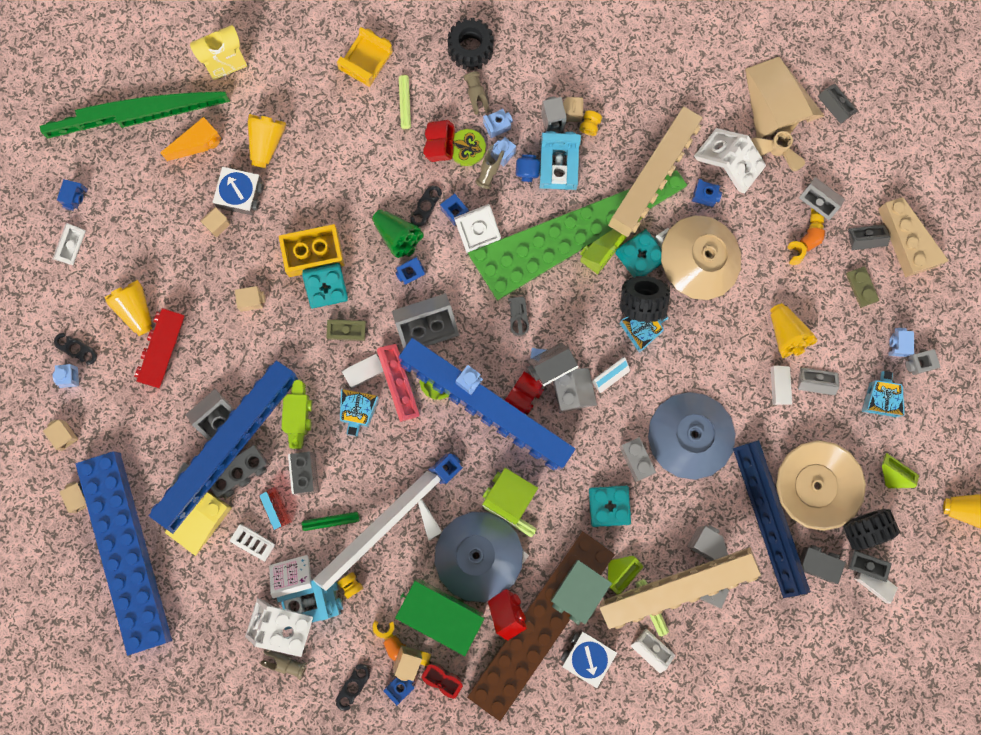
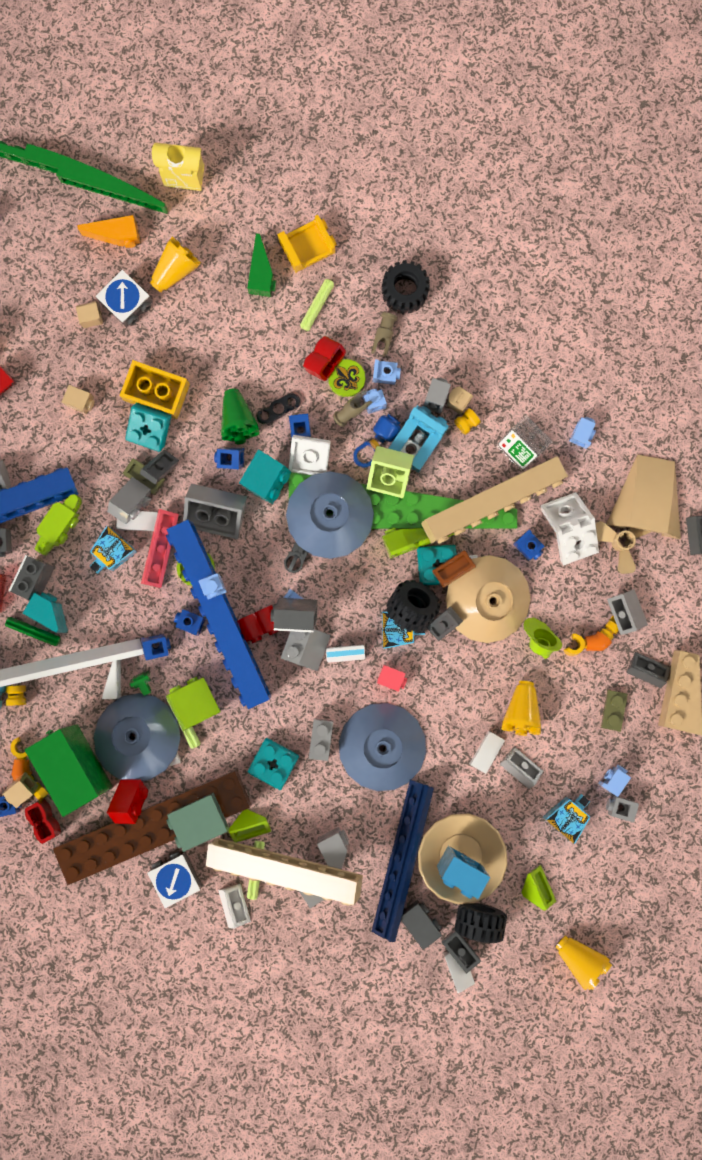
camera: 35 degrees right, 5 degrees up
(332, 494) = (47, 612): none -> teal slope
(342, 102) = (261, 277): none -> green slope
(347, 356) = (129, 500): none -> light grey brick
(355, 313) = (159, 467): none -> dark grey plate
(451, 505) = (141, 681): none -> green brick
(452, 267) = (265, 477): none -> teal slope
(469, 432) = (196, 622): none -> blue brick
(525, 186) = (373, 443): none -> blue piece
(525, 285) = (323, 534): none -> sand blue dish
(555, 200) = (390, 472): none -> yellowish green brick
(649, 112) = (524, 443): none -> slope
(658, 247) = (454, 568): none -> dark orange tile
(663, 371) = (392, 678): none -> coral brick
(680, 298) = (444, 623): none -> dark grey plate
(691, 76) = (583, 432): none -> light blue brick
(766, 263) = (542, 638): none -> lime piece
(832, 492) = (463, 873): none -> dark azure brick

